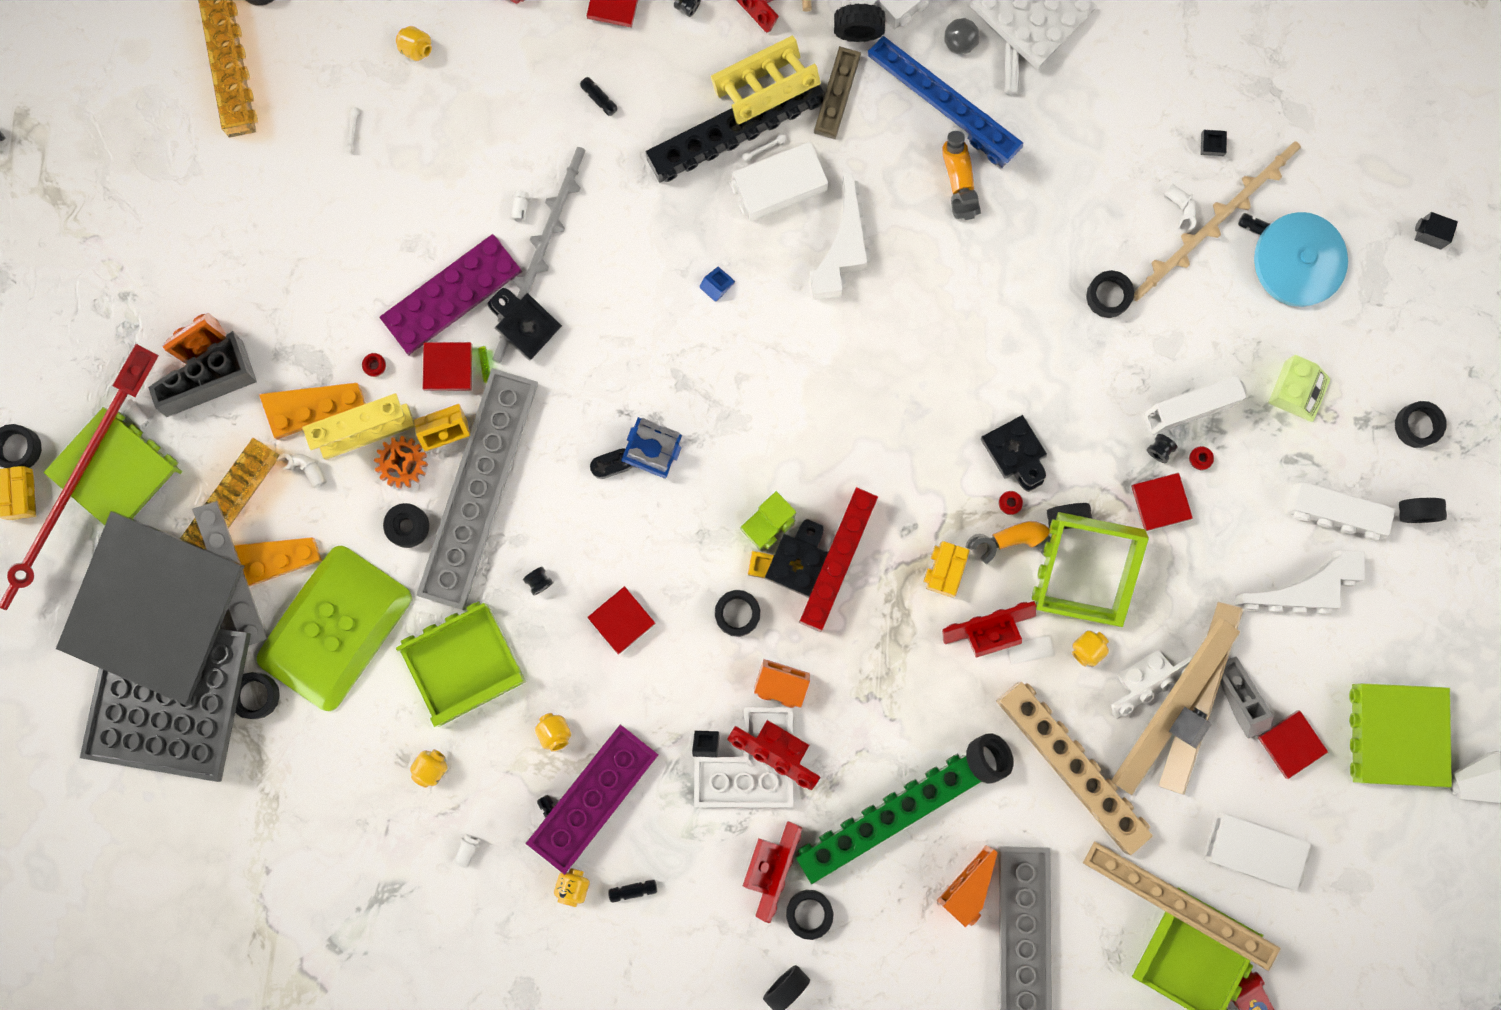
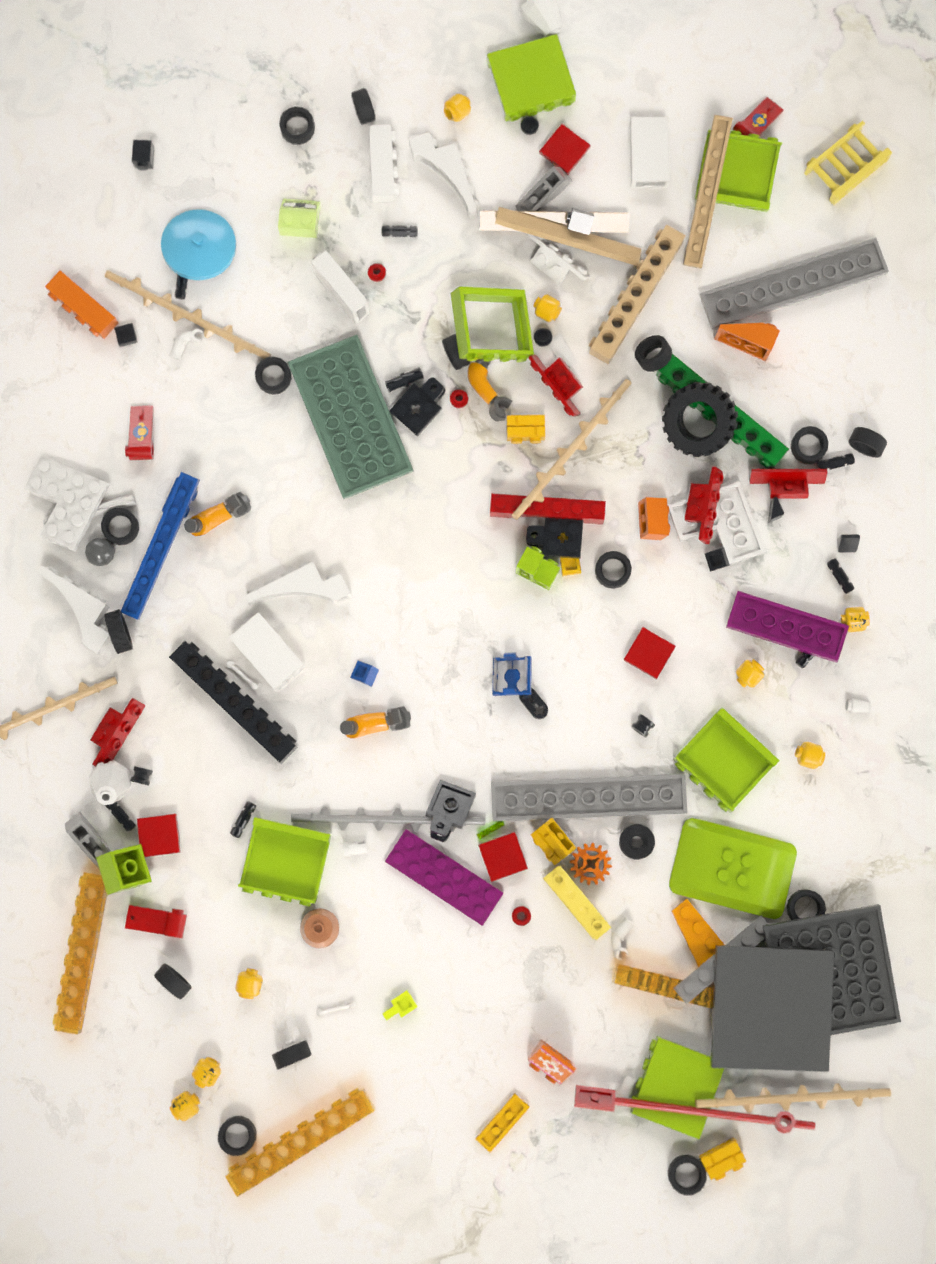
camera: 105 degrees left, 0 degrees up
(44, 608) = (785, 1100): none -> tan plant
(157, 266) = (502, 1122): none -> yellow tile
(204, 378) = (574, 1038): dark grey wedge -> none
(297, 408) = (575, 959): light orange wing -> none
(317, 61) = (291, 1054): none -> black tyre
(327, 198) = (401, 1004): none -> neon yellow plate
(445, 138) = (319, 928): none -> nougat cone
(533, 126) = (285, 861): none -> lime panel
(655, 272) = (371, 723): none -> piece
(669, 916) = (848, 543): none -> black slope
(740, 839) = (776, 510): none -> black slope
(759, 65) = (177, 701): light yellow fence -> none
(776, 940) = (836, 462): none -> black axle
(837, 93) = (177, 633): dark tan tile -> none
(877, 753) = (675, 426): none -> black tyre
(898, 603) = (565, 454): none -> tan plant
(991, 51) = (121, 540): none -> black tyre
(1030, 367) = (350, 416): none -> sand green plate
(1055, 445) = (404, 379): none -> black pin
(1055, 631) = (543, 337): none -> black plate
(1077, 117) = (140, 433): none -> door
(1161, 502) = (420, 290): red tile -> none
(1162, 448) = (379, 302): black wheel -> none
(1246, 503) = (399, 231): none -> axle
(1267, 103) = (80, 303): none -> orange brick
(1337, 711) = (529, 125): none -> black plate
(1387, 627) = (457, 107): none -> yellow head

